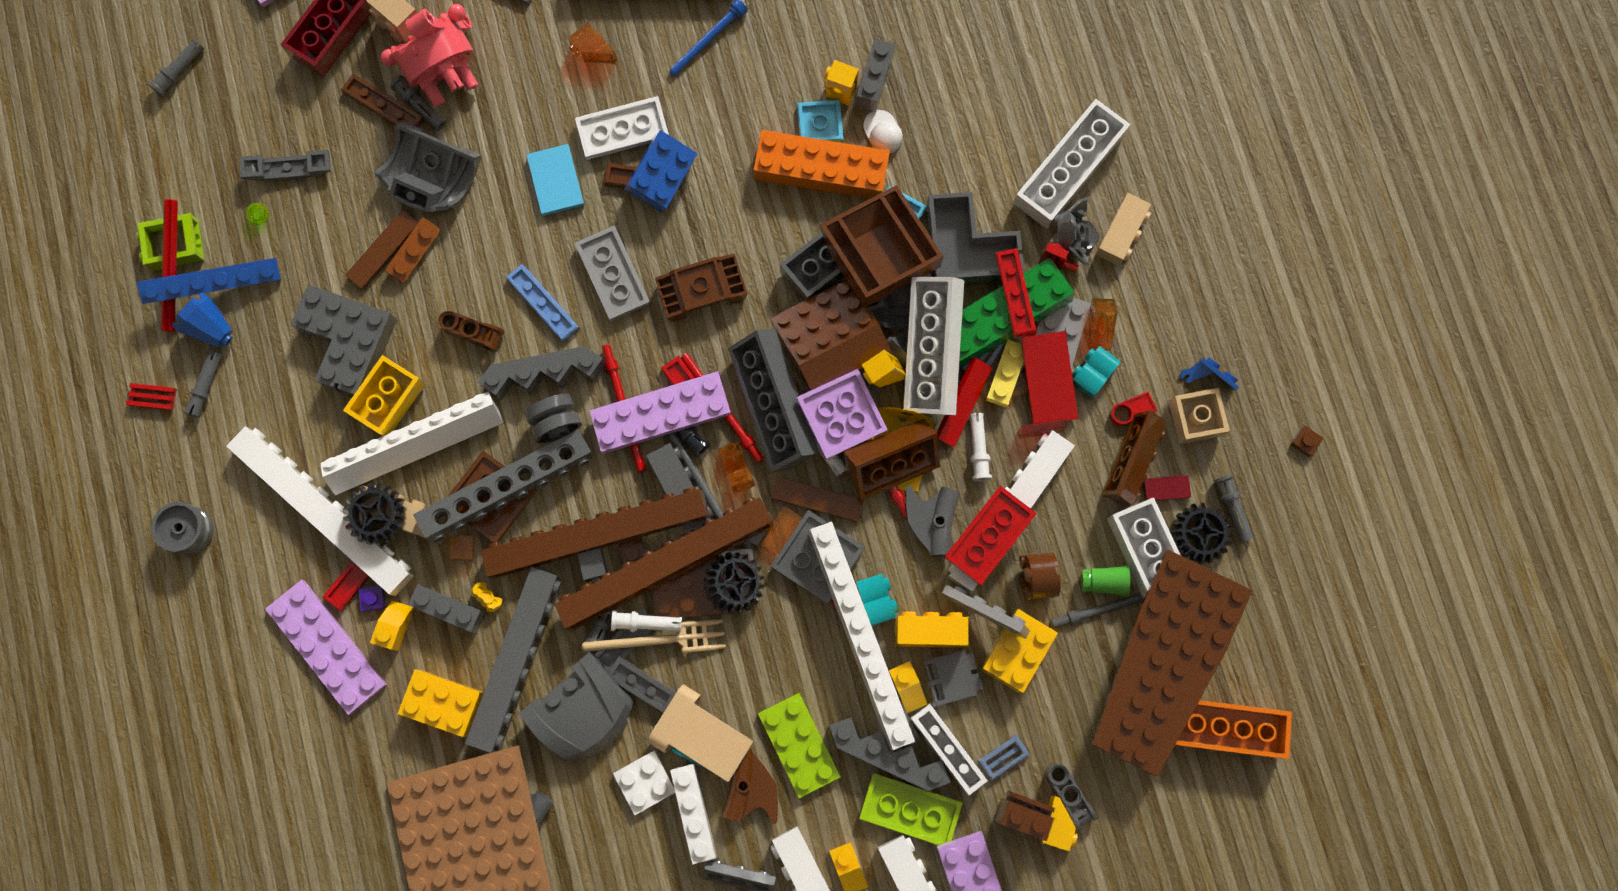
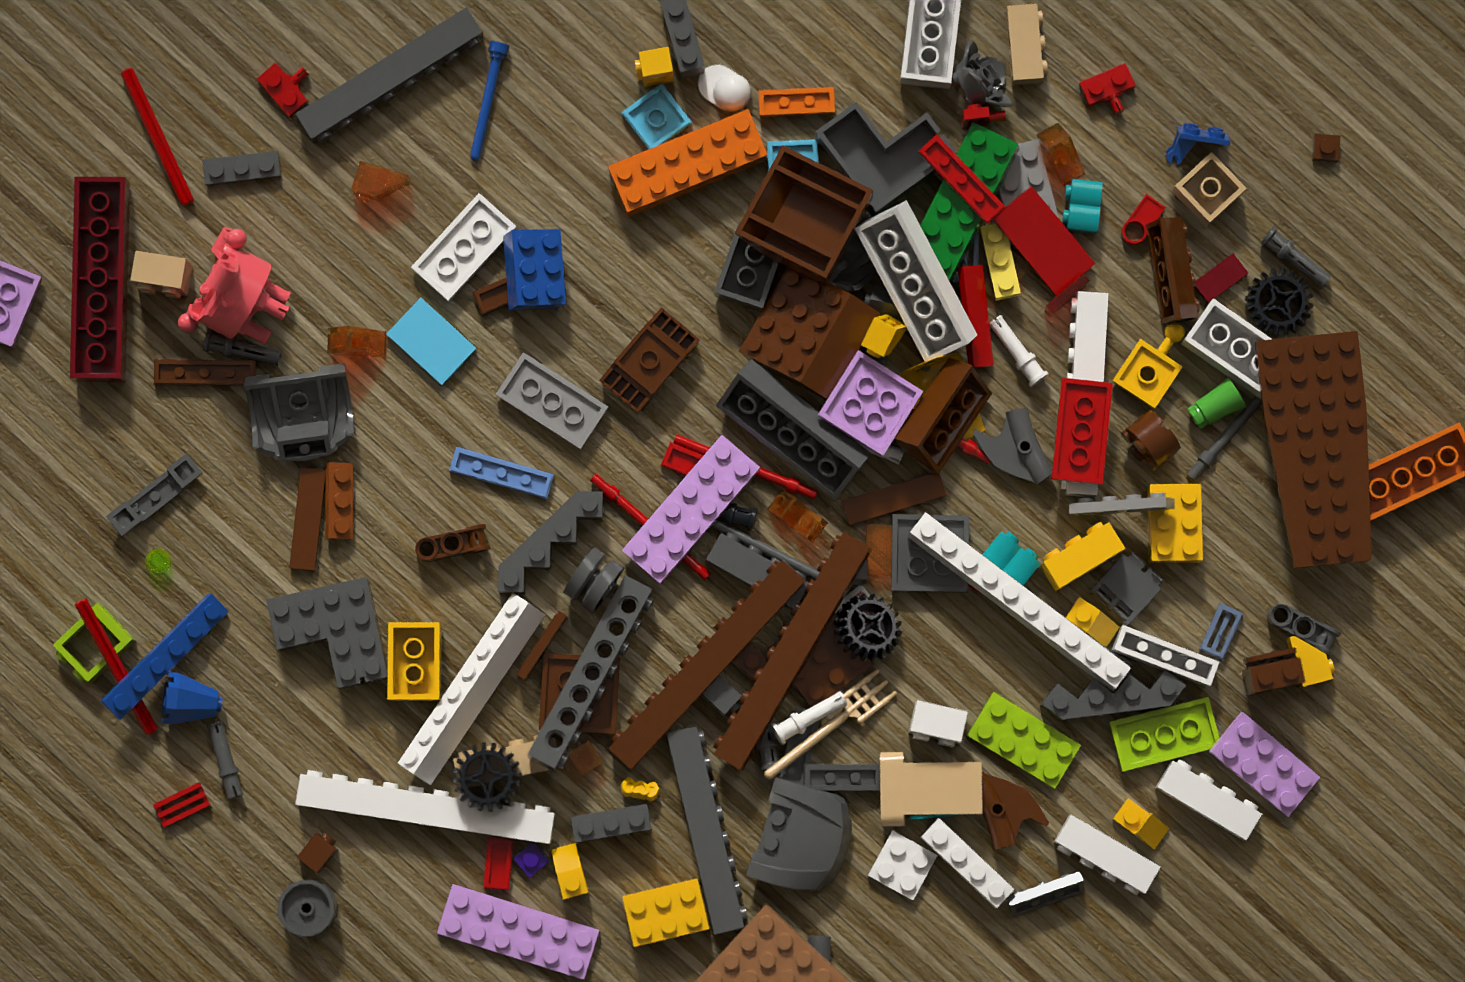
camera: 30 degrees left, 5 degrees up
(220, 492) = (318, 851): none -> reddish brown brick
(485, 444) = (542, 645): none -> reddish brown tile
(501, 146) = (356, 341): none -> clear orange slope
(739, 689) = (937, 723): none -> white brick
(928, 170) = (796, 102): none -> orange plate
(1082, 526) = (1164, 368): none -> yellow plate
(1167, 298) = (1108, 87): none -> red plate

